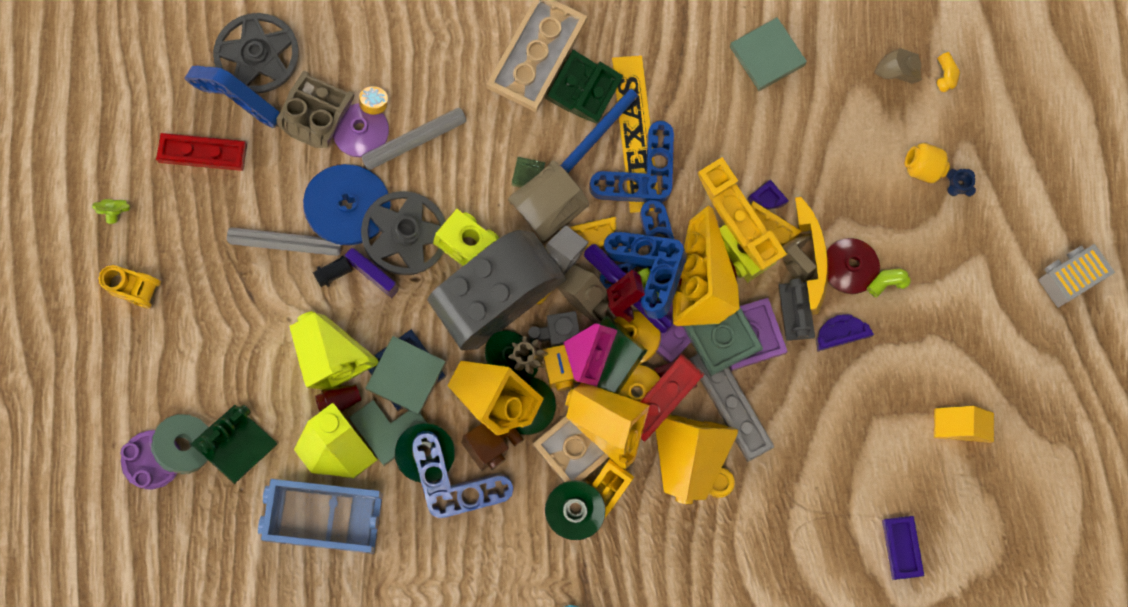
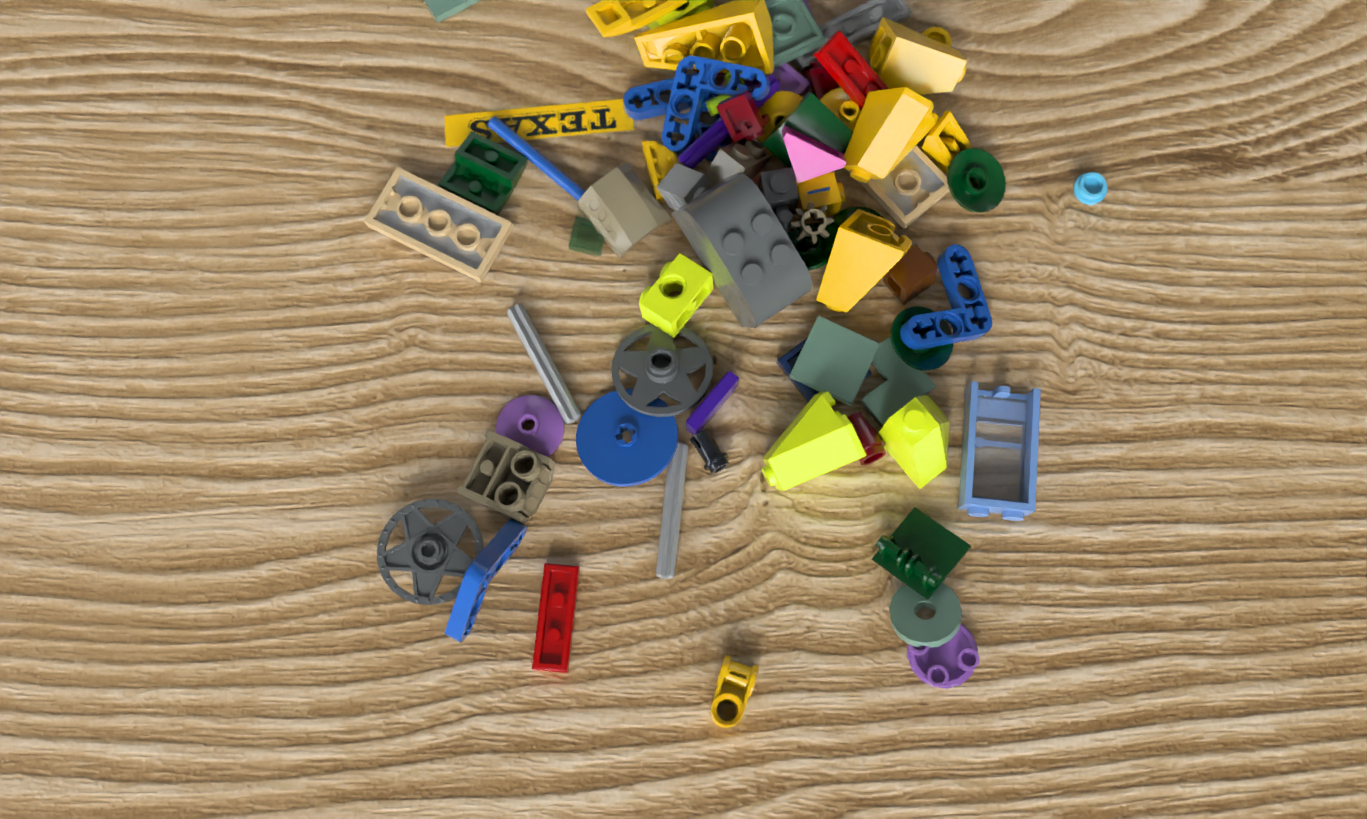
camera: 85 degrees left, 0 degrees up
(111, 209) = (631, 724): lime plant -> none
(373, 100) = (495, 410): tile -> none
(644, 181) = (599, 108): blue beam -> none

